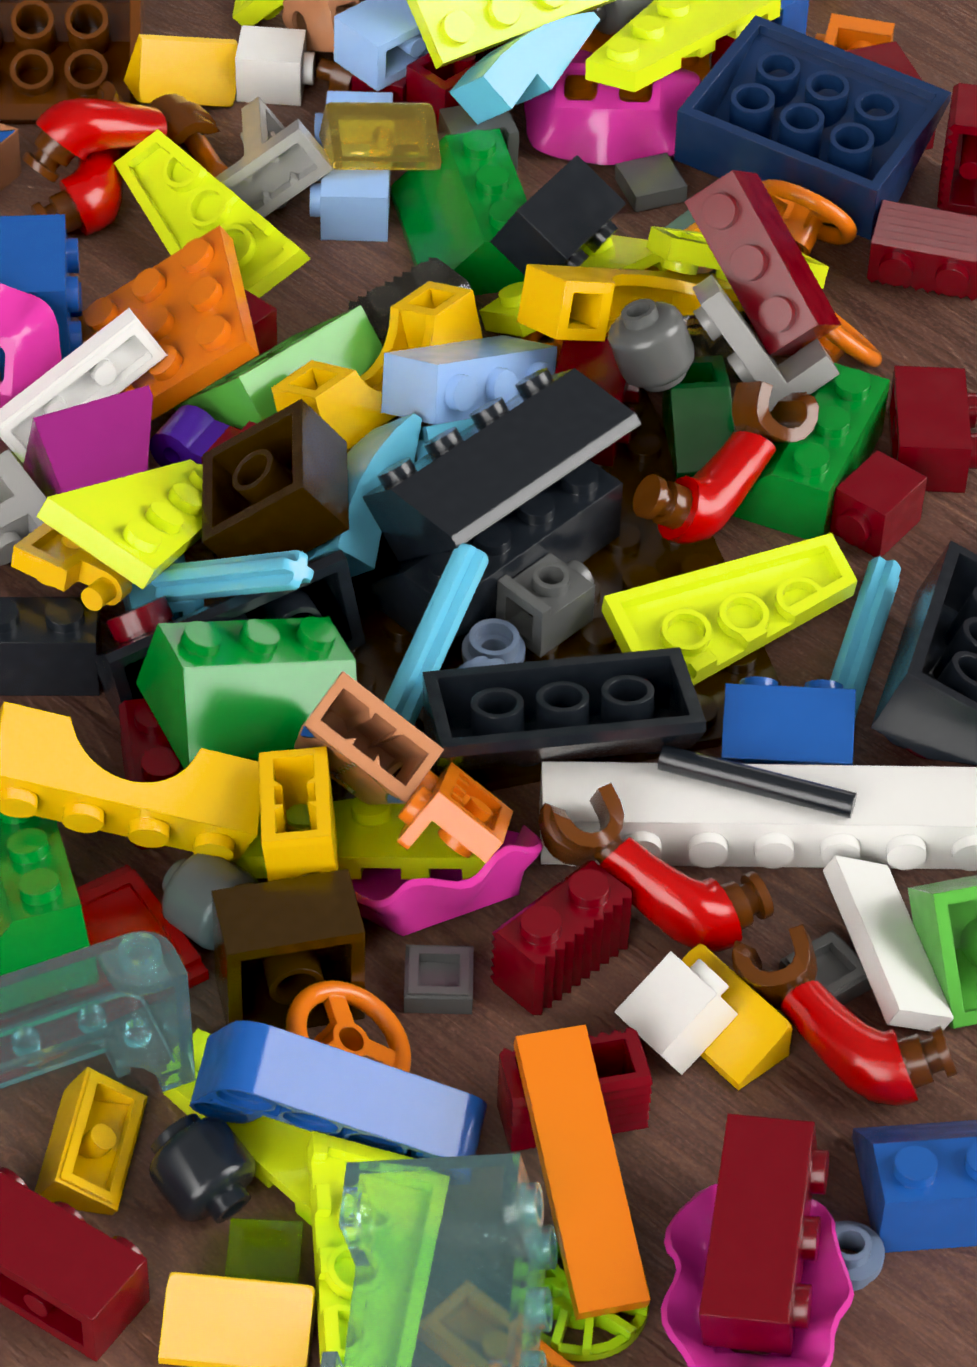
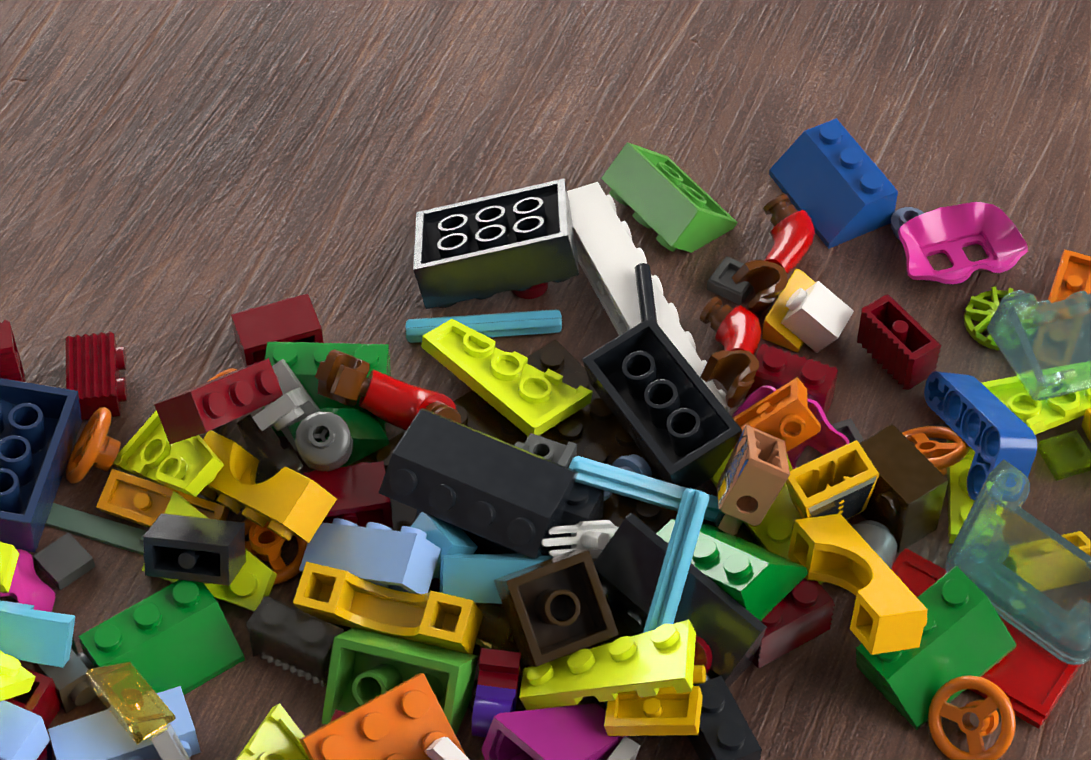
camera: 110 degrees left, 5 degrees up
(202, 1168) = (1049, 489): black head -> none
(373, 570) = (584, 536): none -> white piece
(581, 1172) = (950, 311): orange tile -> none
(762, 1234) = (947, 232): dark red brick -> none
(788, 723) = (583, 318): blue brick -> none
(878, 504) = (362, 329): dark red brick -> none
(887, 944) = (706, 254): white tile -> none

